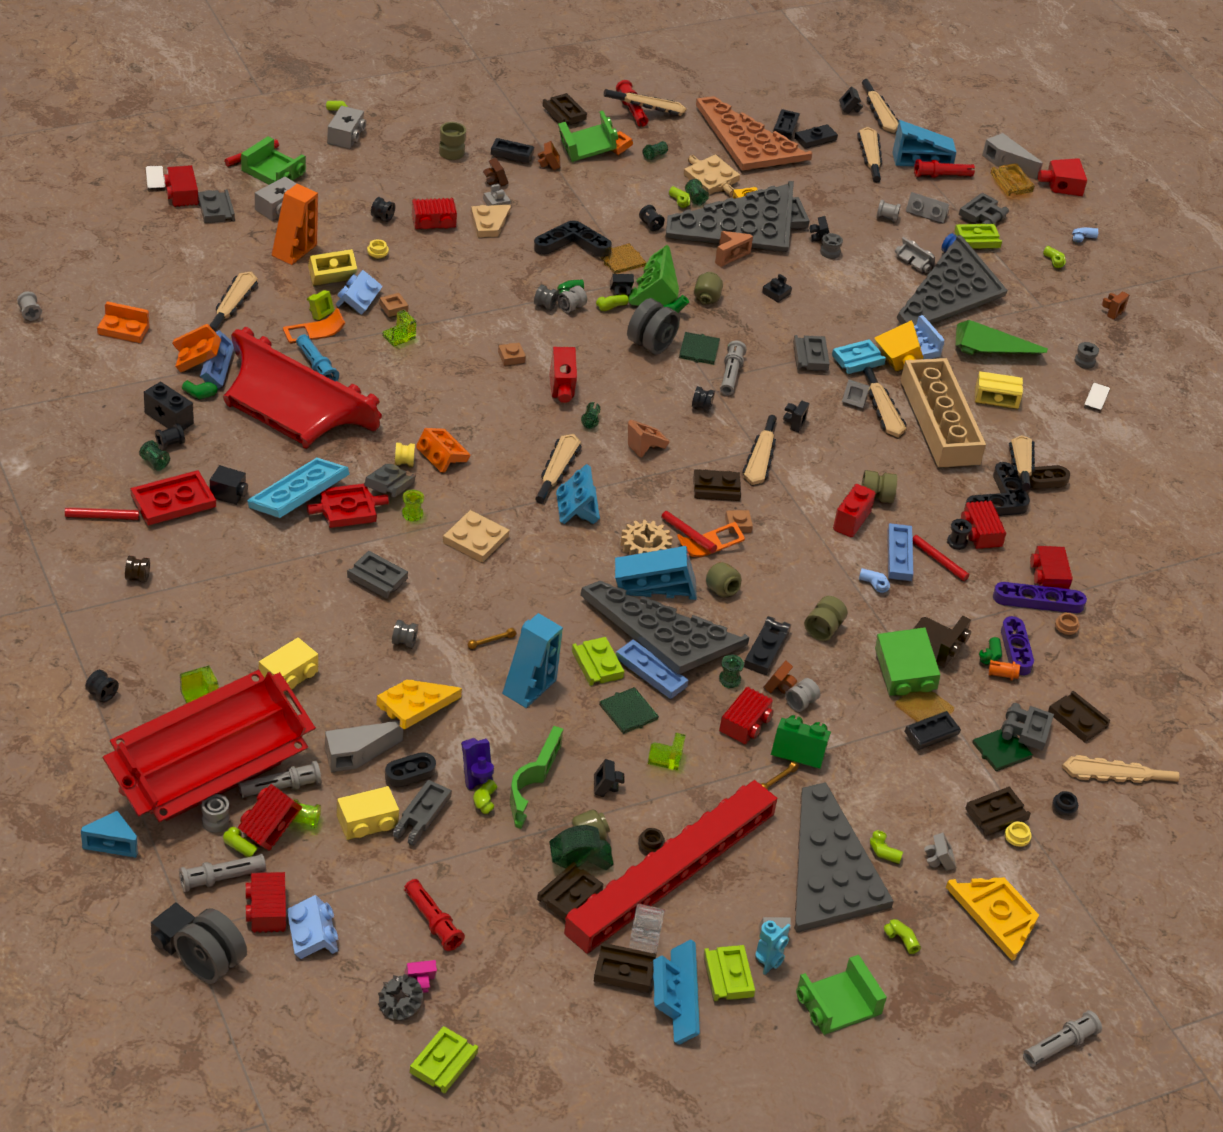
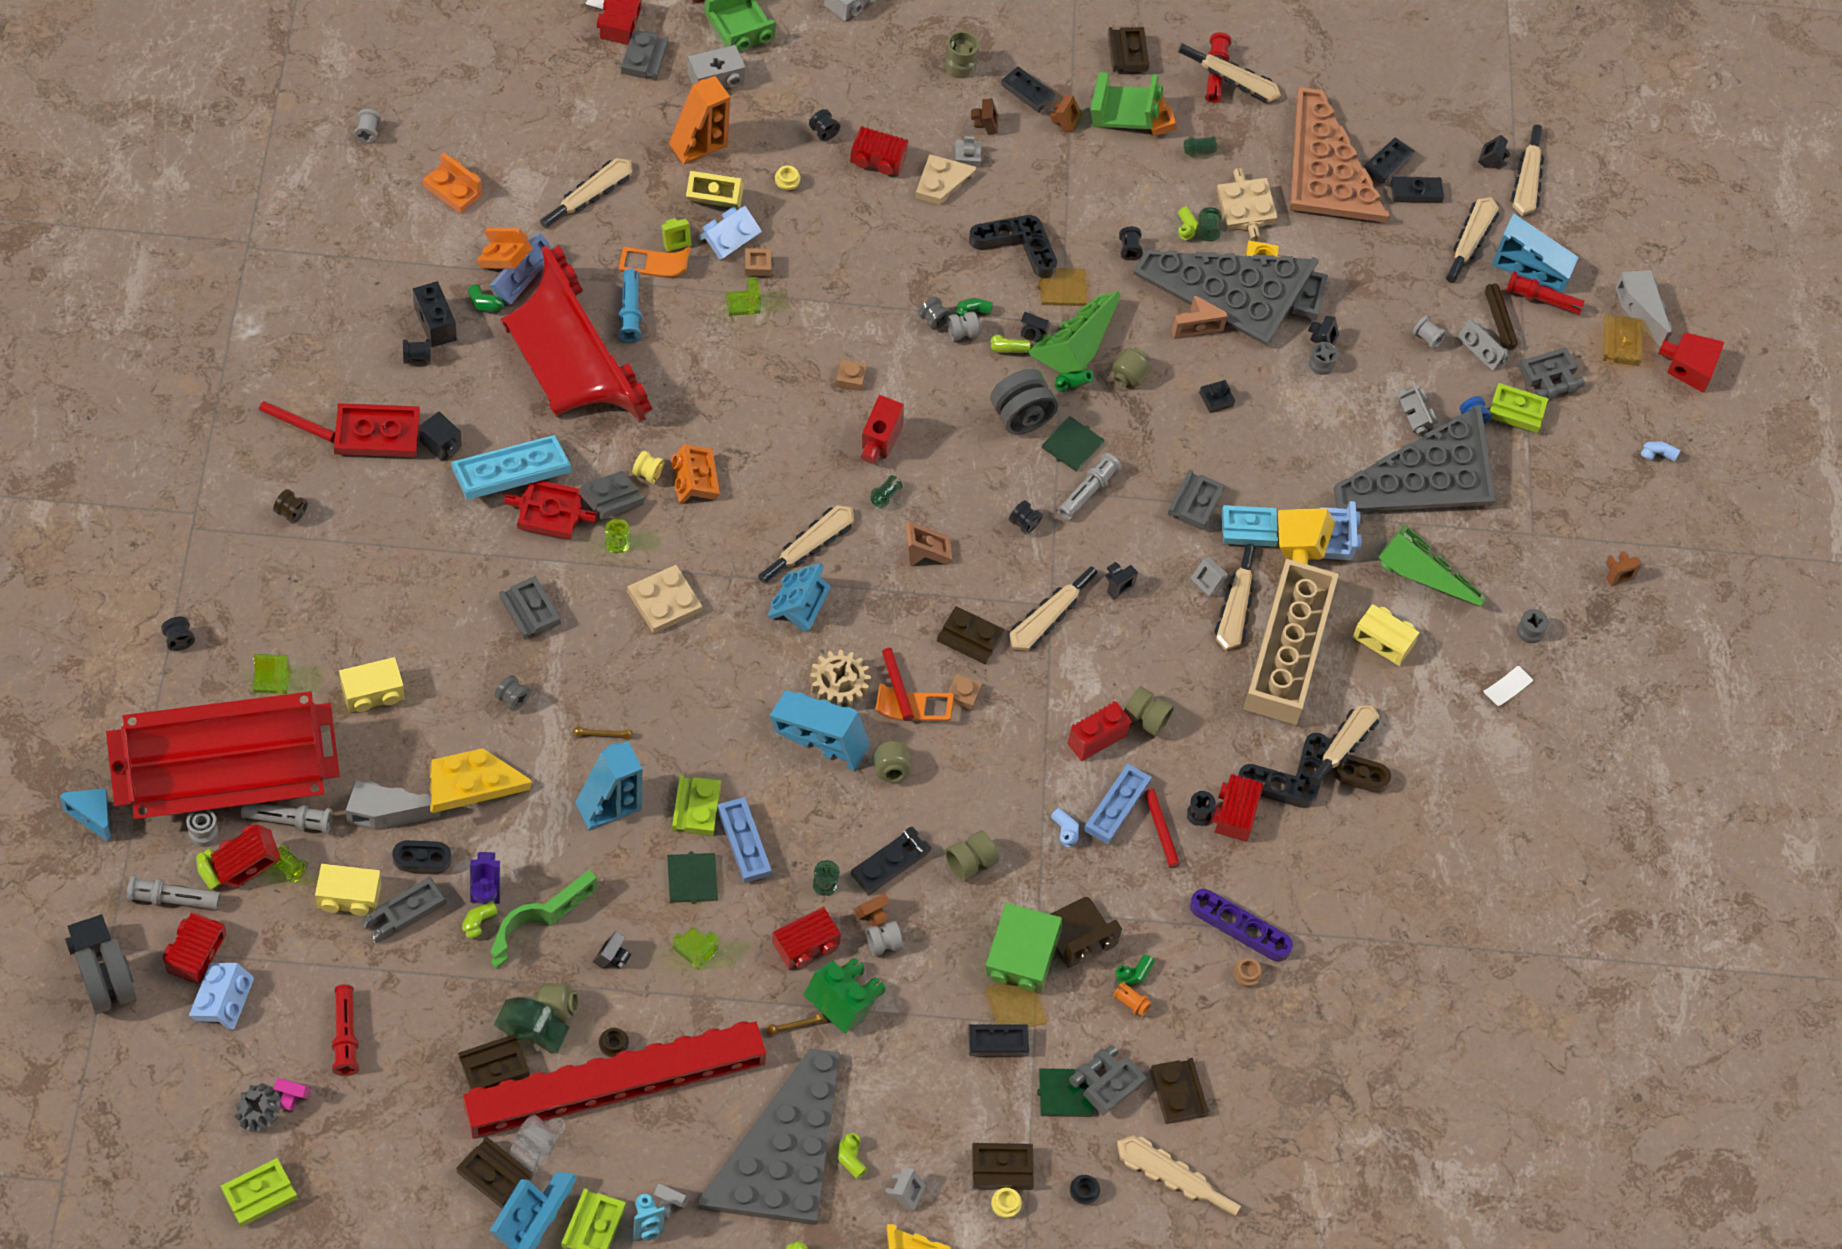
camera: 25 degrees right, 15 degrees up
(154, 455) = (388, 372): clear green bush -> none
(671, 637) = (785, 800): dark grey wing -> none
(922, 187) = (1501, 316): none -> dark brown axle
(1013, 654) = (1170, 963): dark purple beam -> none
(1051, 567) = (1277, 896): red brick -> none
(1057, 257) = (1600, 471): lime arm -> none

